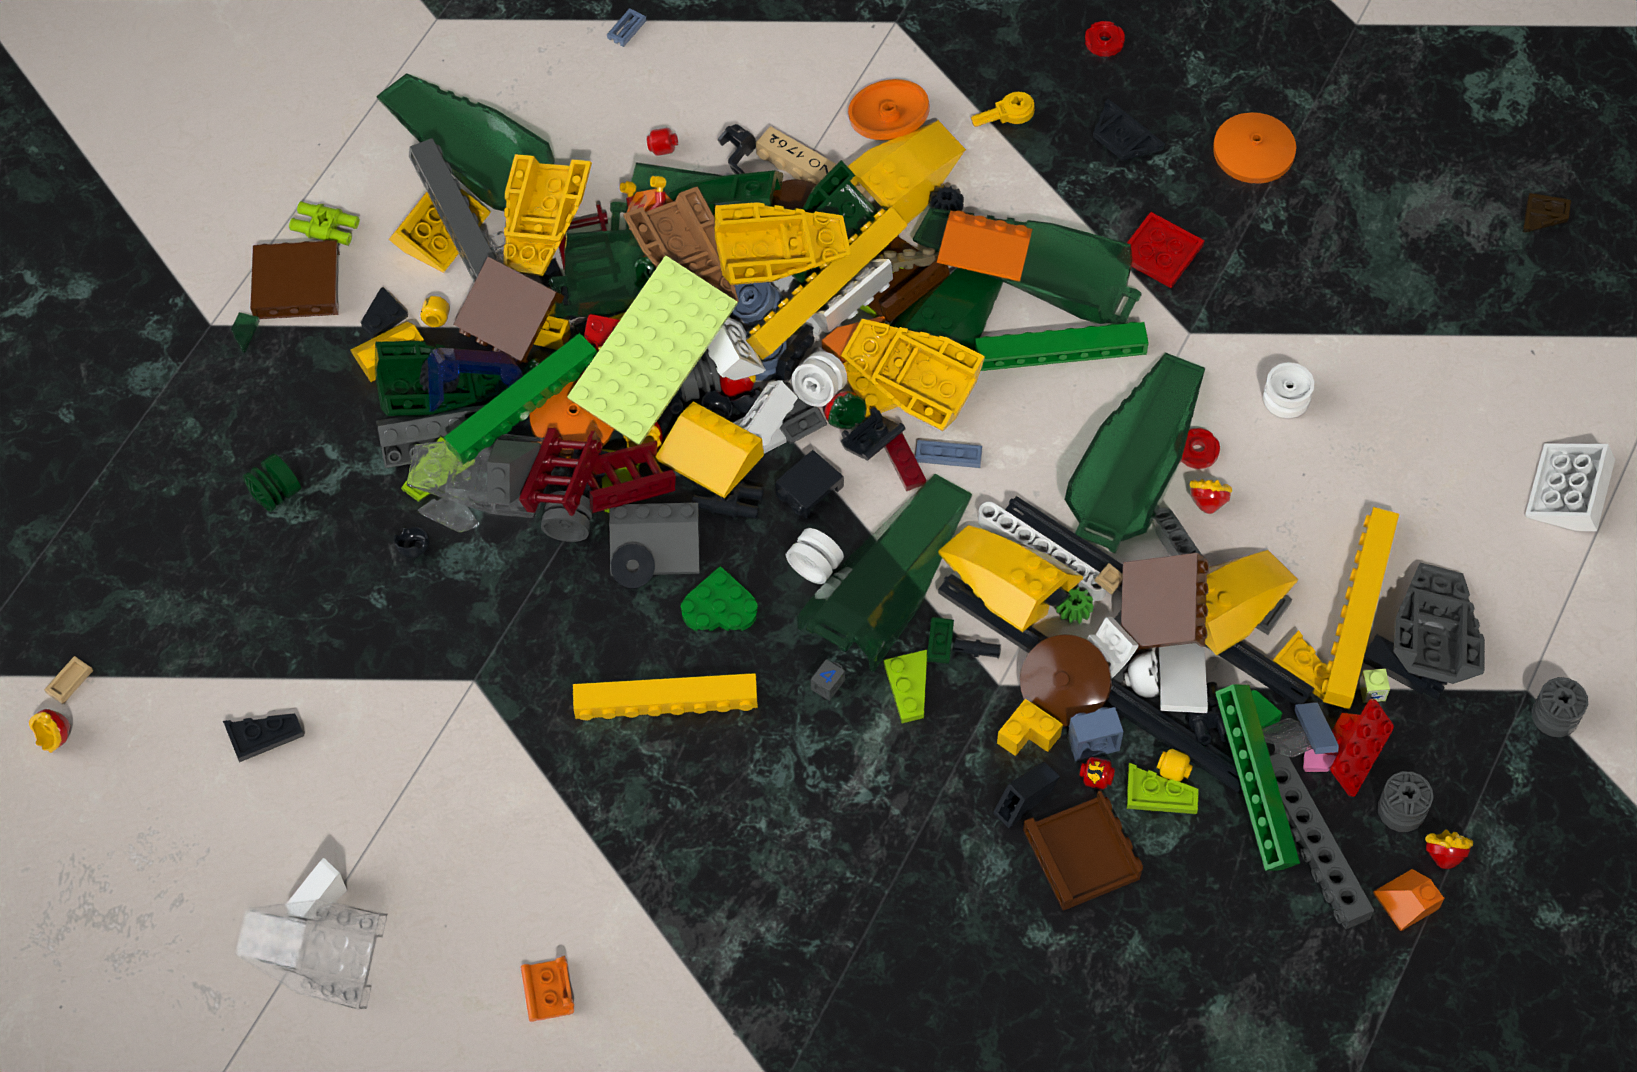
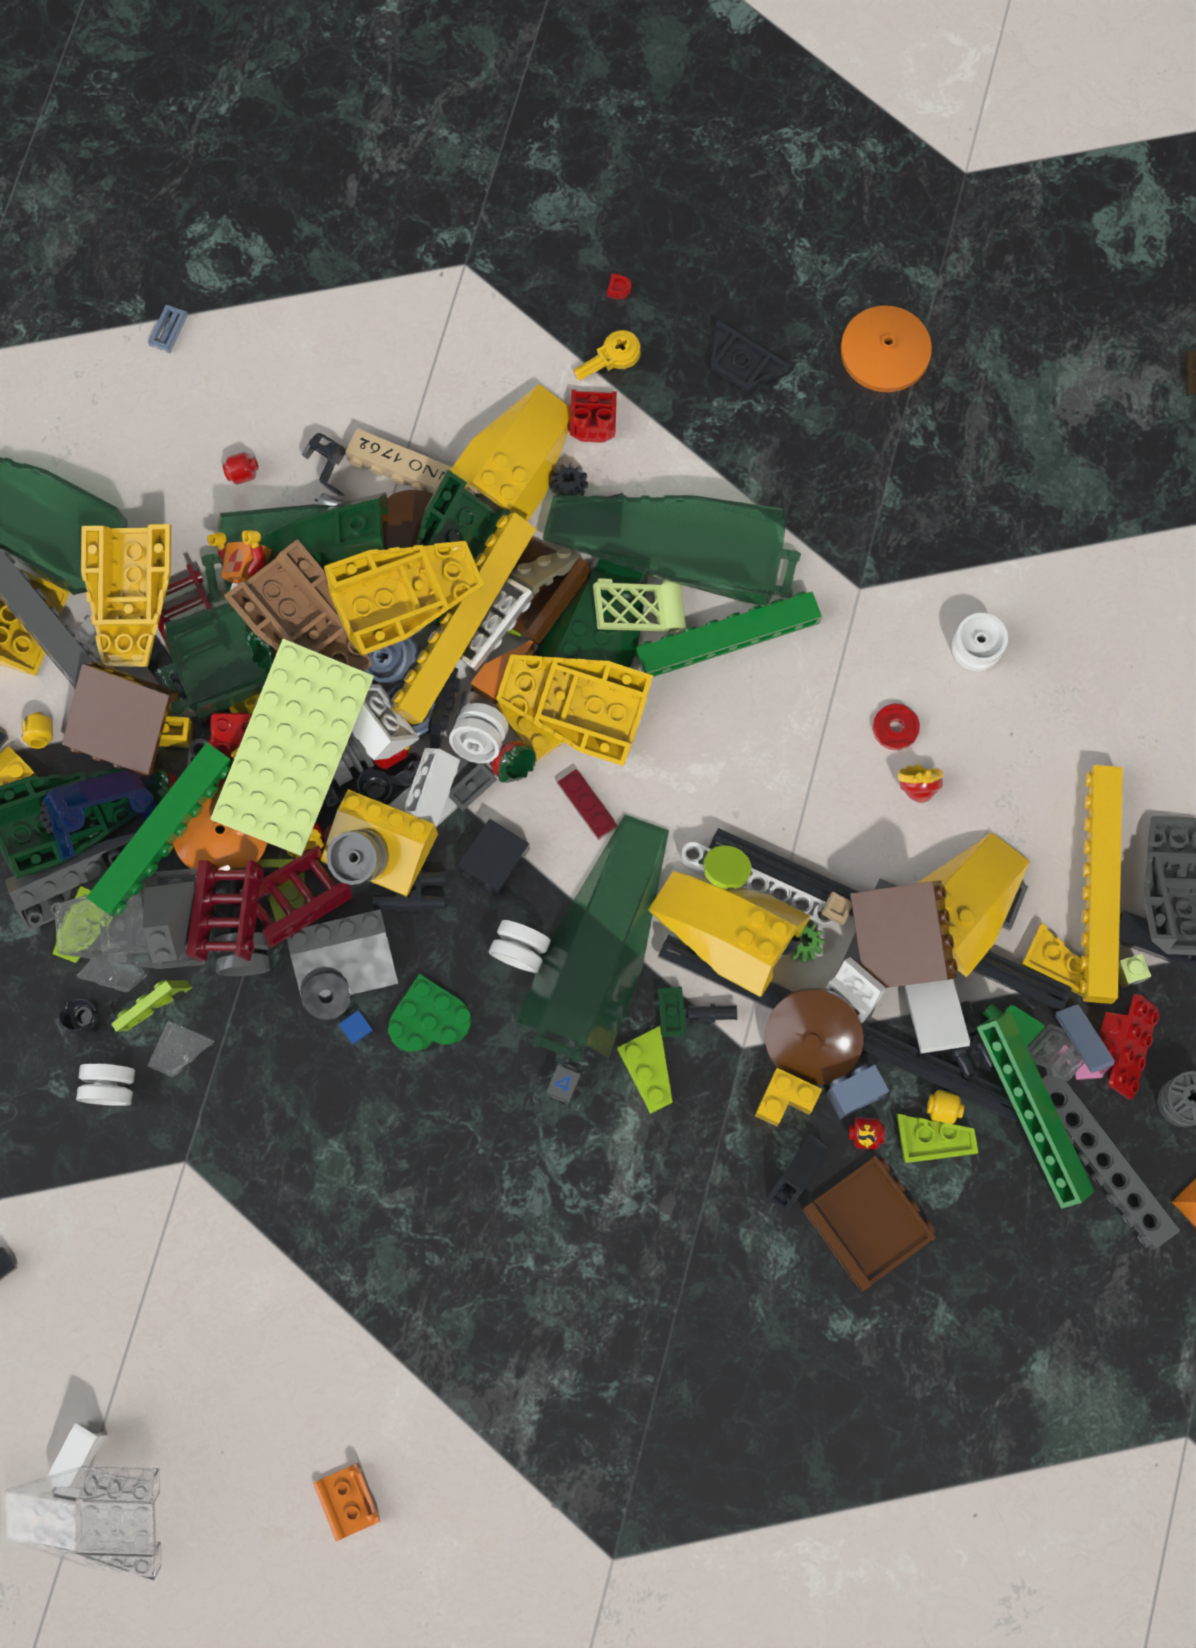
camera: 15 degrees left, 15 degrees up
(421, 597) = (105, 1084): none -> white wheel
(481, 539) = (144, 1005): none -> lime wing
(490, 586) = (176, 1049): none -> clear slope
(652, 599) = (355, 1027): none -> blue tile
(665, 696) = (393, 1141): yellow brick -> none
(688, 451) = (357, 856): none -> wheel
(871, 435) = (548, 785): black piece -> none
(889, 109) = (482, 381): orange dish -> none
(948, 454) = (634, 787): sand blue tile -> none
(979, 154) = (593, 416): none -> red slope
(984, 245) = (624, 537): orange slope -> none
(1012, 312) = (668, 608): none -> yellowish green piece
(1016, 524) = (727, 867): none -> lime tile
(1026, 60) = (619, 287): none -> red tile
(1101, 47) = (692, 253): red tile -> none
(1135, 455) = (836, 750): clear green windscreen -> none
(1144, 675) = (894, 1011): white cylinder -> none
(1163, 249) = (812, 494): red plate -> none
(1173, 533) = (898, 849): dark grey beam -> none

